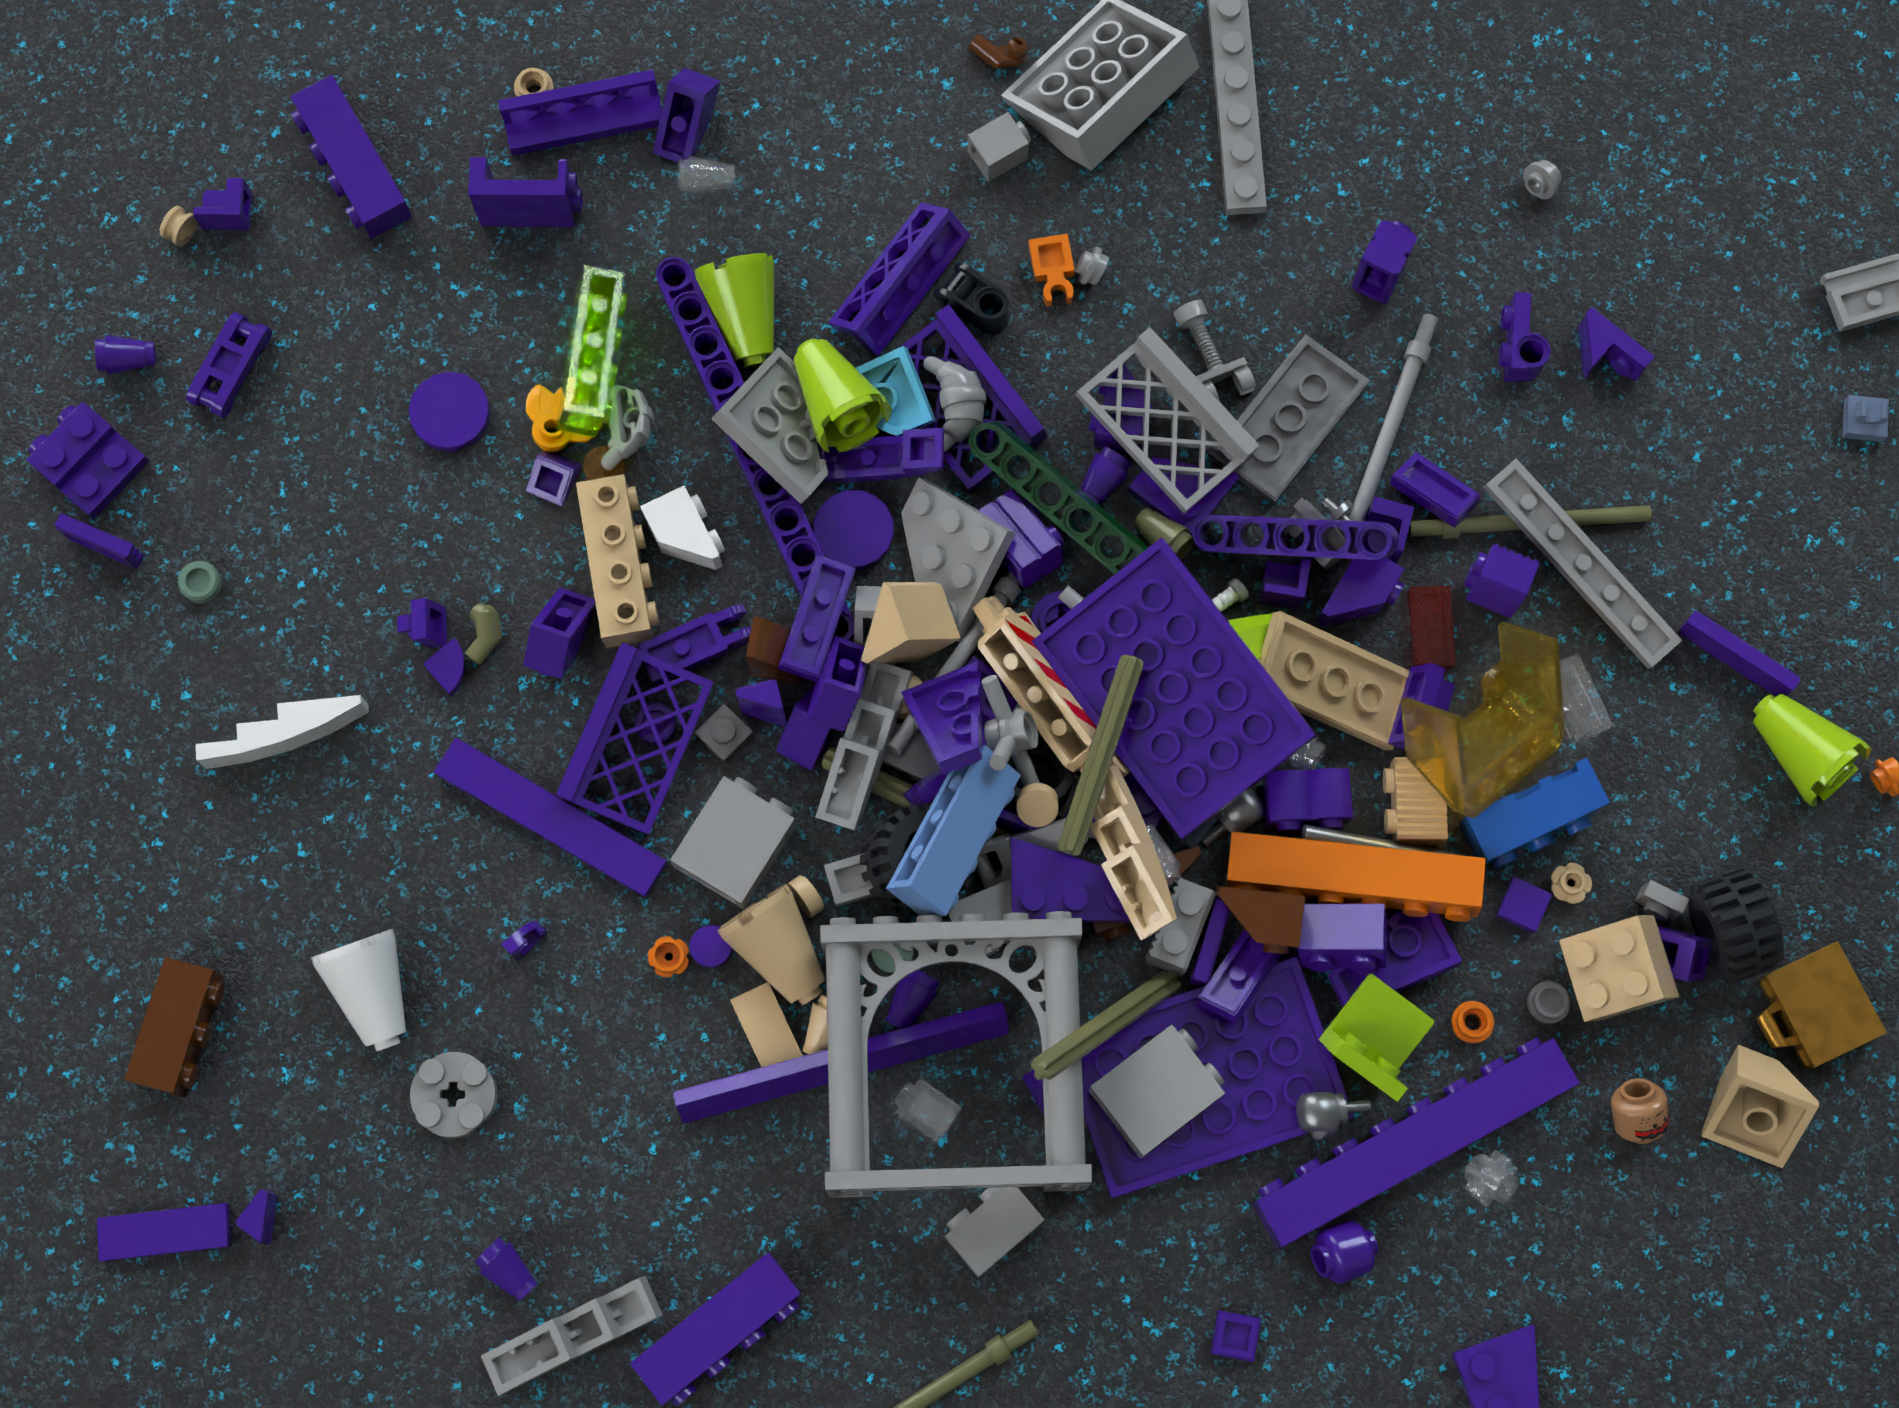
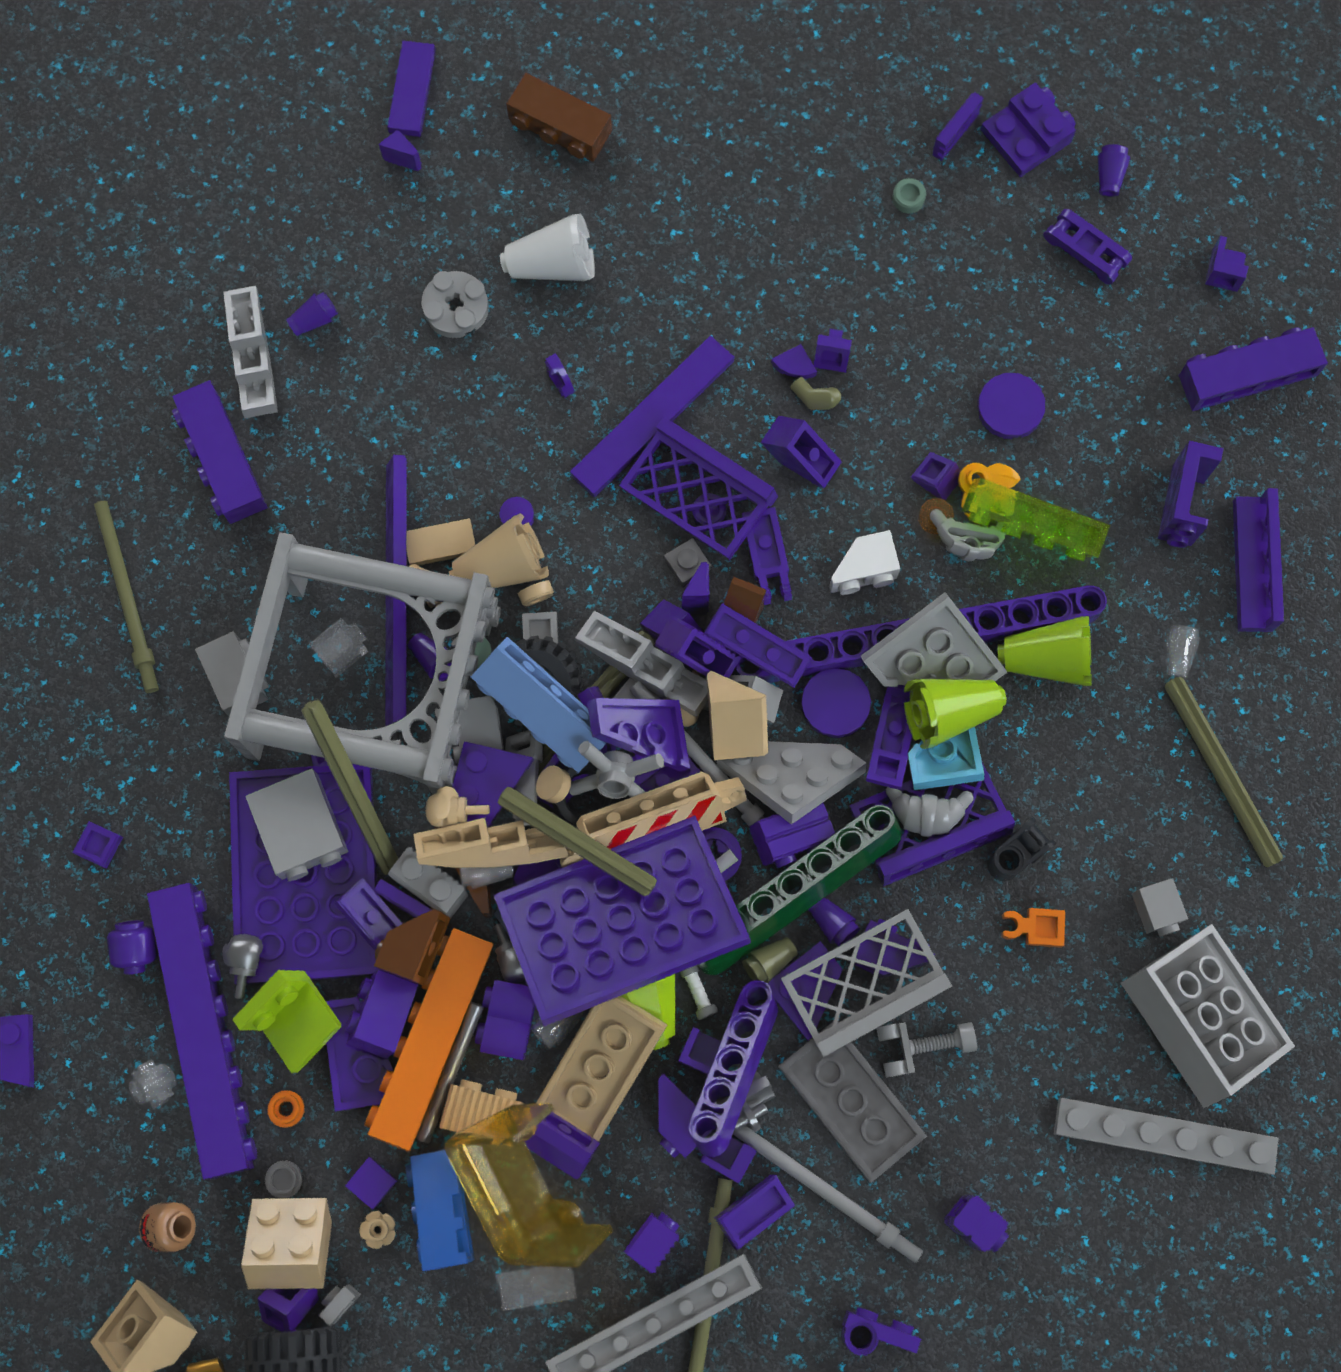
camera: 105 degrees right, 0 degrees up
(178, 226) = (1215, 226): tan bush -> none
(296, 726) = (771, 237): white slope -> none
(532, 77) = (1300, 524): tan plate -> none
(615, 560) = (851, 505): tan brick -> none
(667, 945) = (517, 472): orange plate -> none
(685, 114) = (1241, 645): dark purple slope -> none
(734, 841) = (594, 548): light grey brick -> none
(830, 111) = (1223, 772): none -> olive axle
(904, 278) = (1051, 795): dark purple fence -> none
(999, 56) = (1249, 932): reddish brown arm -> none
(1091, 266) = (1030, 960): light grey plate -> none
(1101, 910) = (448, 809): none -> tan piece
(1431, 626) = (633, 1174): clear red tile -> none

